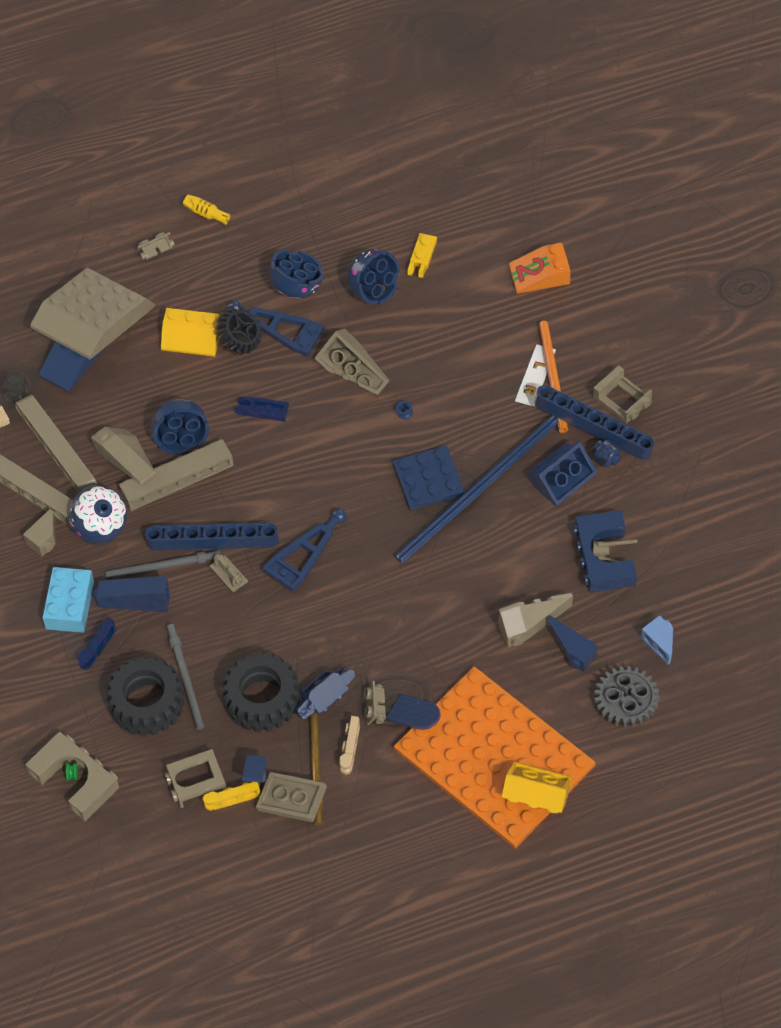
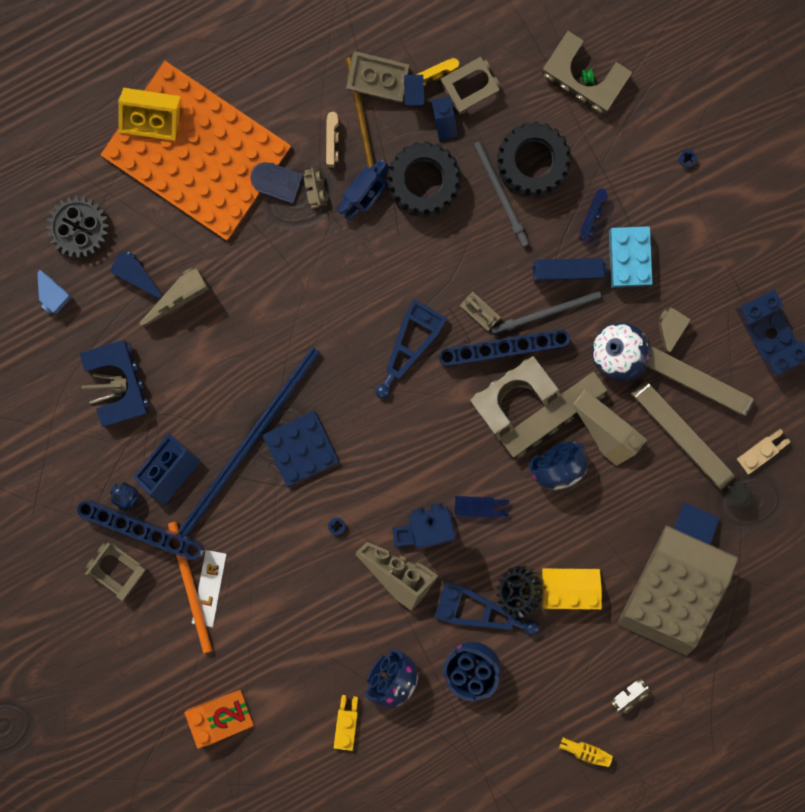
camera: 170 degrees right, 30 degrees up
(191, 508) = (526, 375): none -> dark tan arch
(229, 753) = (444, 118): none -> dark blue slope
(311, 382) = (438, 532): none -> dark blue plate
(341, 393) = (403, 535): none -> dark blue plate

